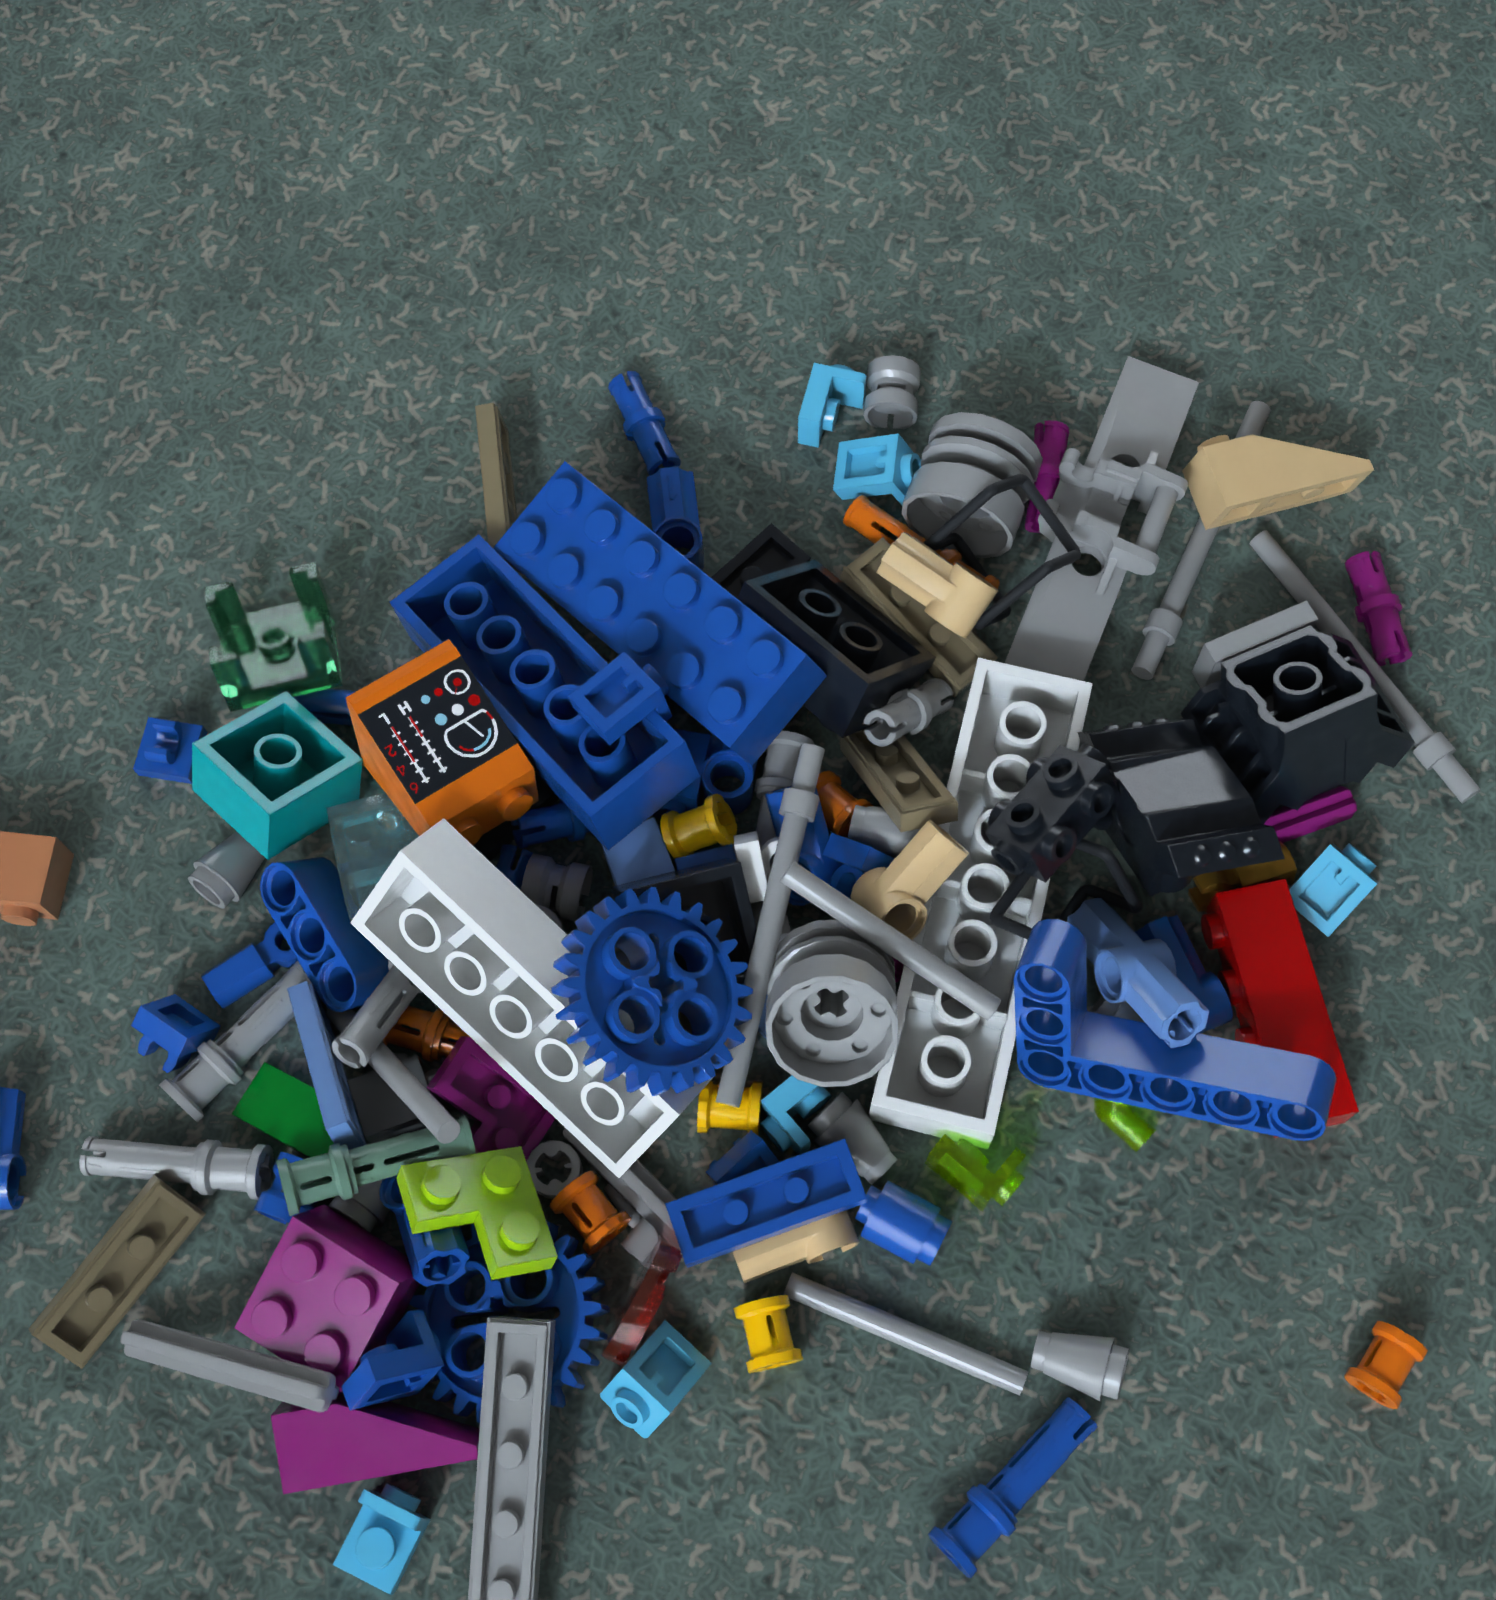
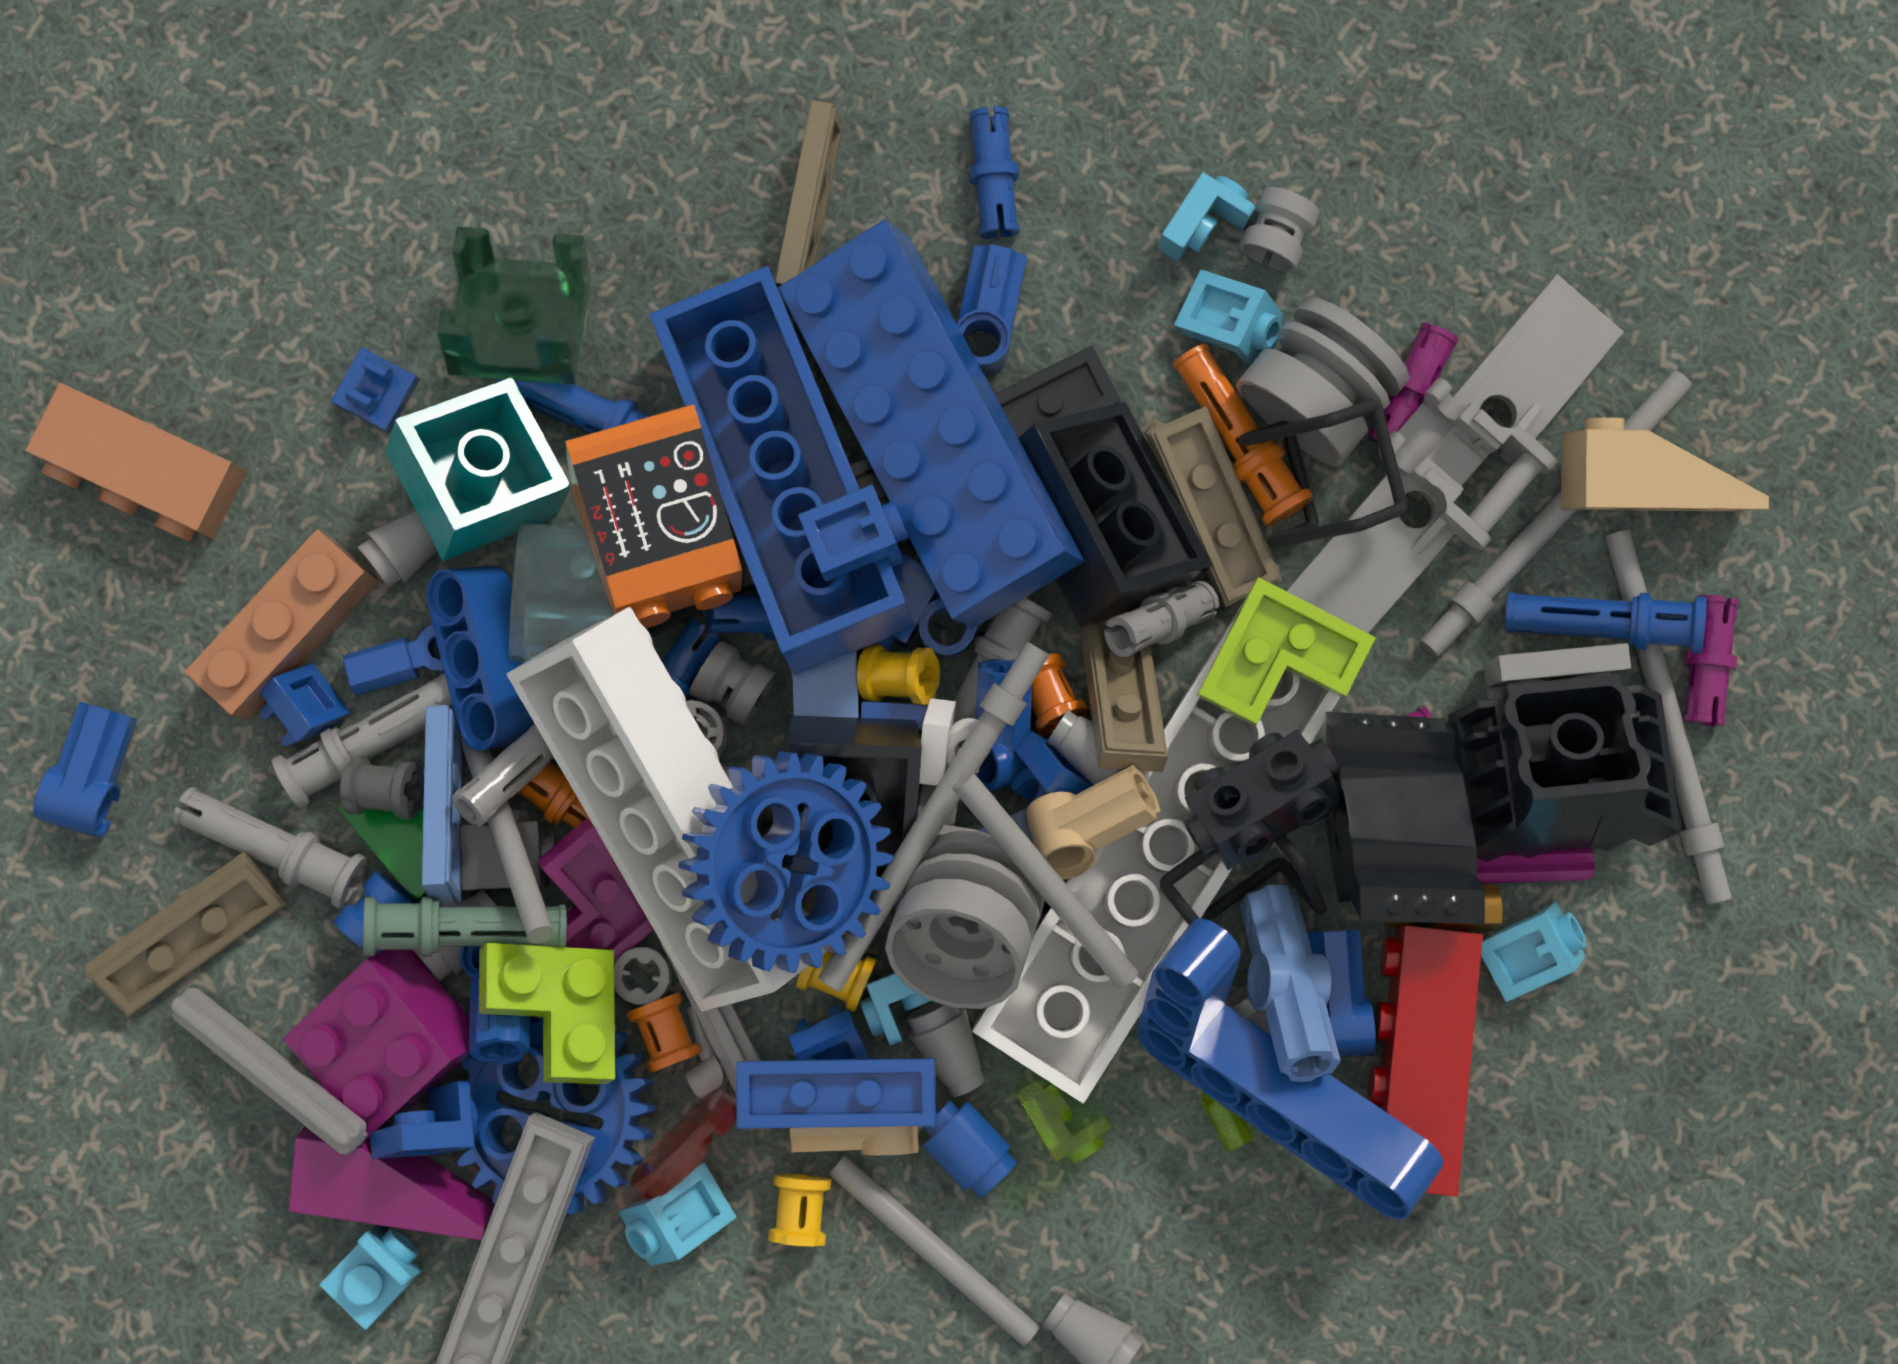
camera: 15 degrees right, 15 degrees up
(137, 962) = (282, 624): none -> nougat brick
(266, 1074) = (382, 788): none -> dark grey bush
(948, 591) = (1251, 503): tan piece -> none
(1019, 676) = (1279, 634): none -> lime plate
(1316, 585) = (1639, 620): none -> blue pin

